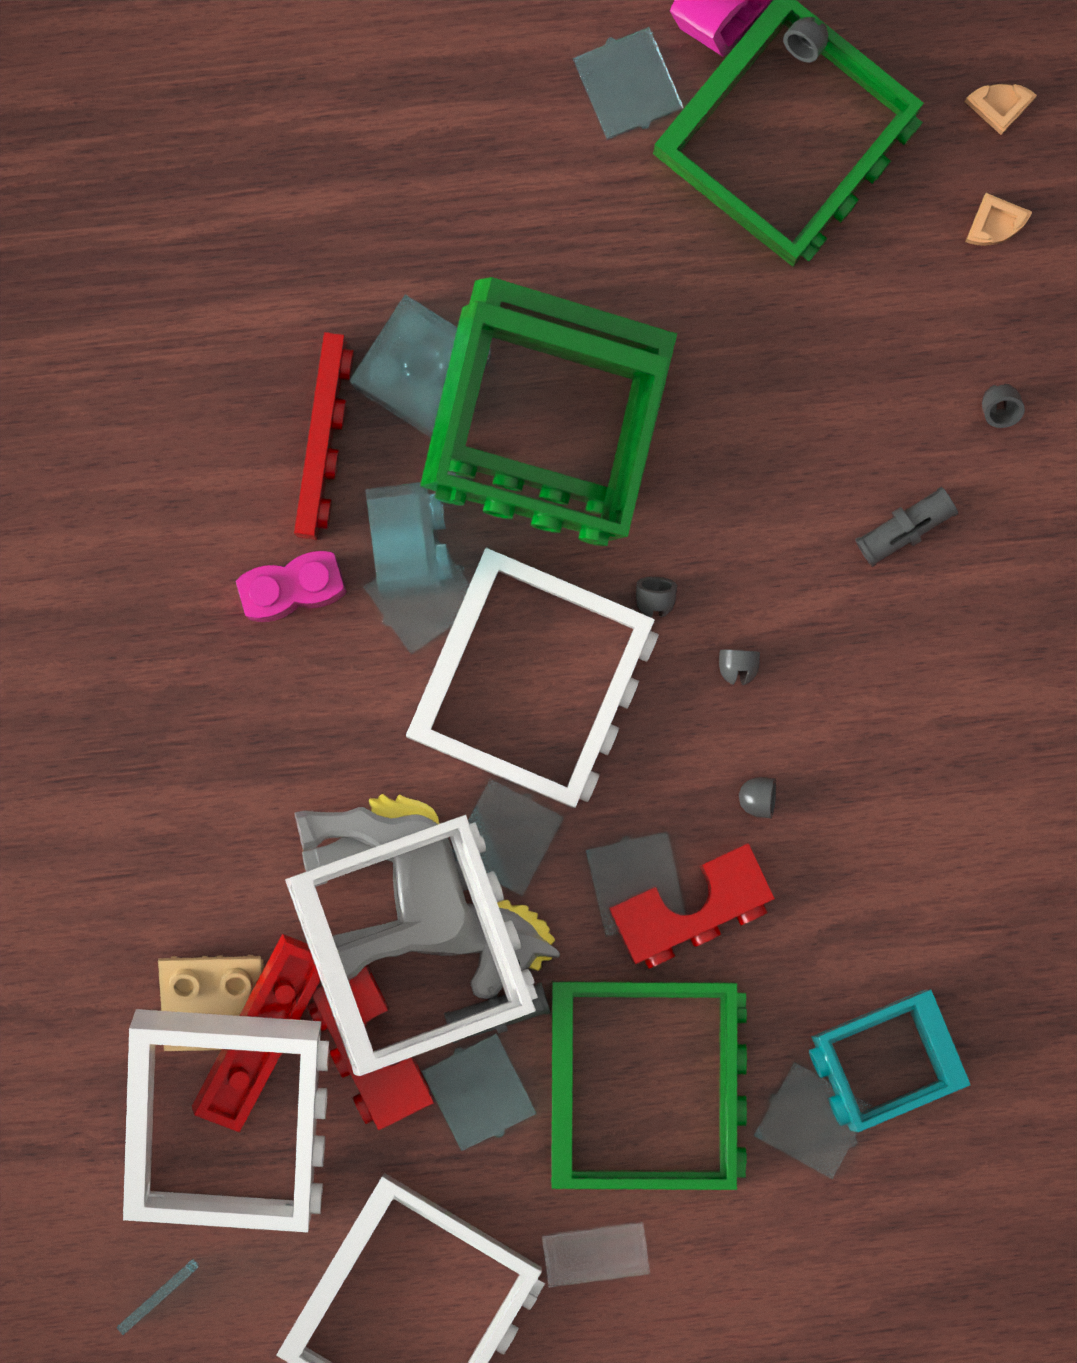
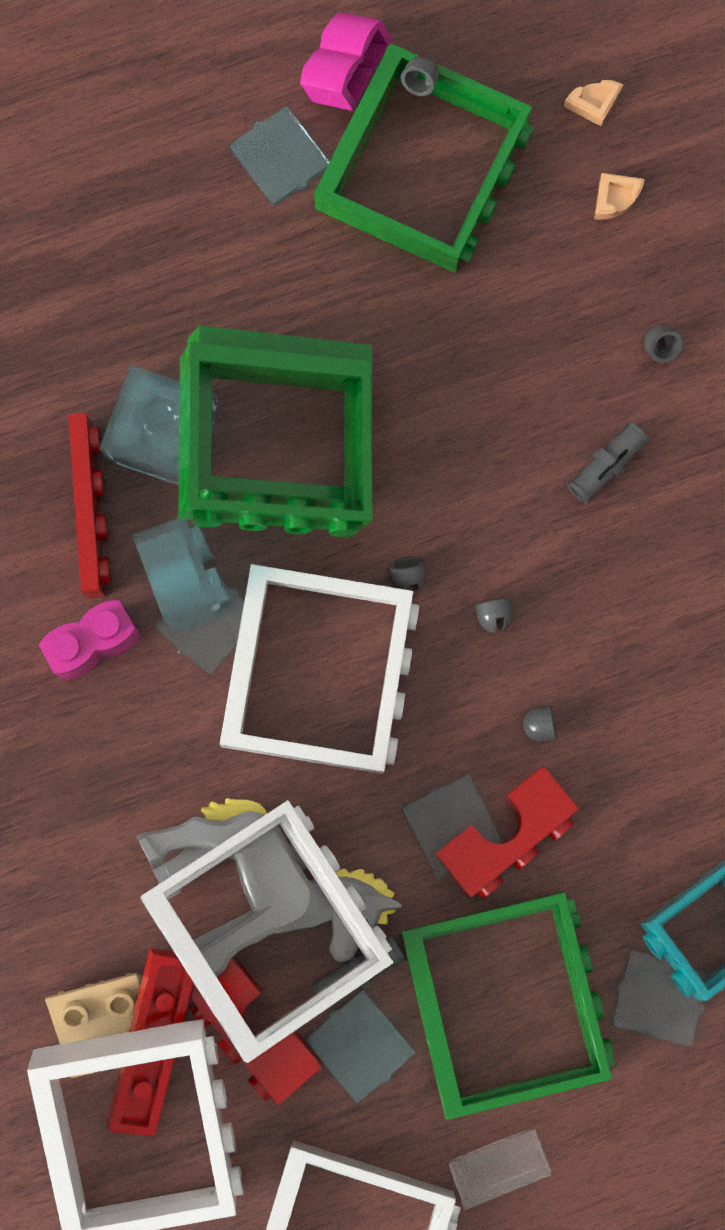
camera: 15 degrees left, 5 degrees down
(514, 834) = (336, 809): clear light blue piece -> none

